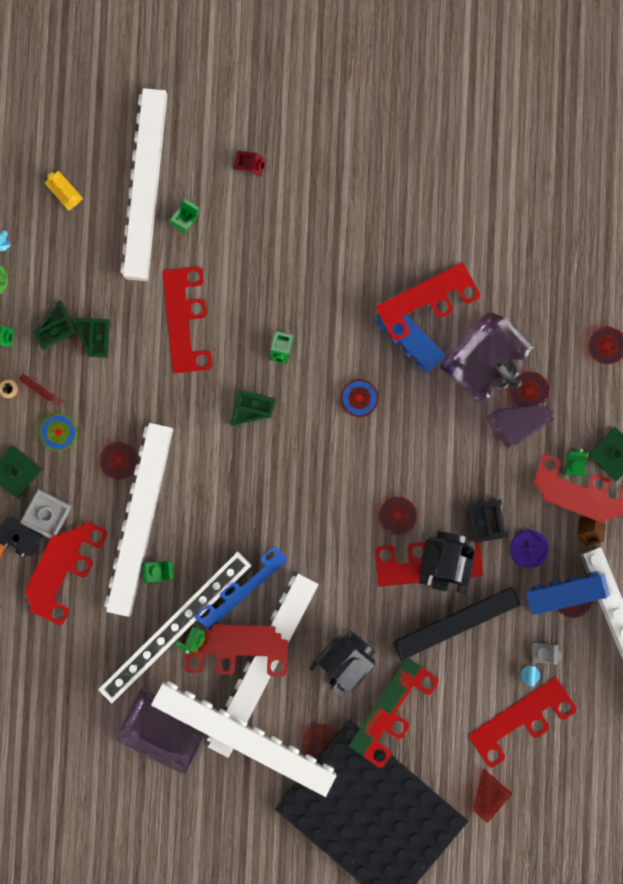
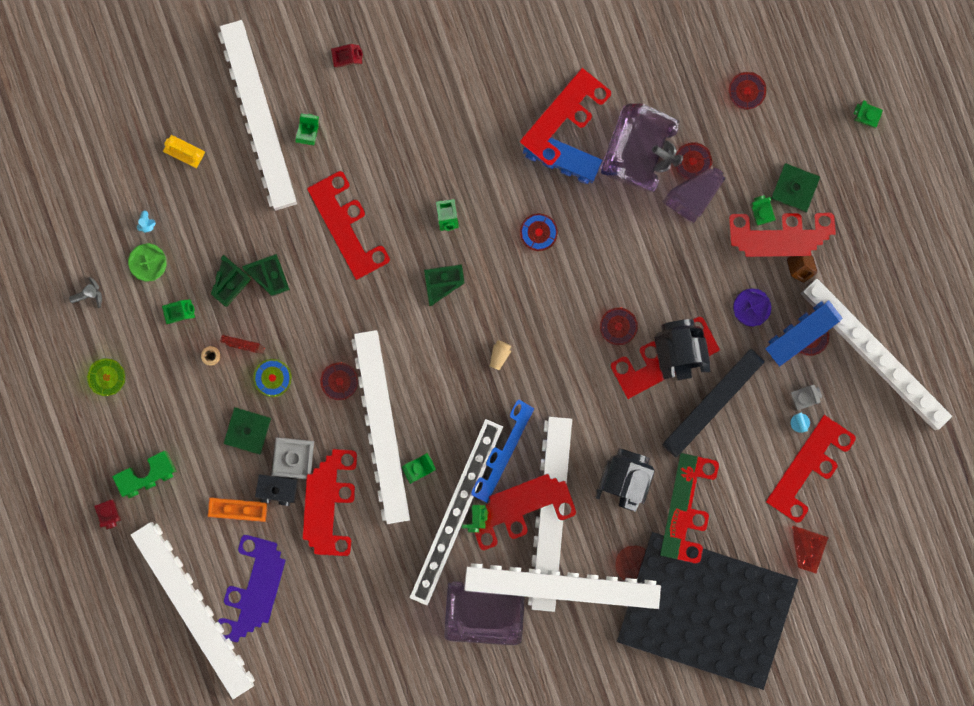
camera: 30 degrees left, 0 degrees up
(277, 495) = (499, 354): none -> tan cone
(481, 523) = (697, 300): black plate -> none

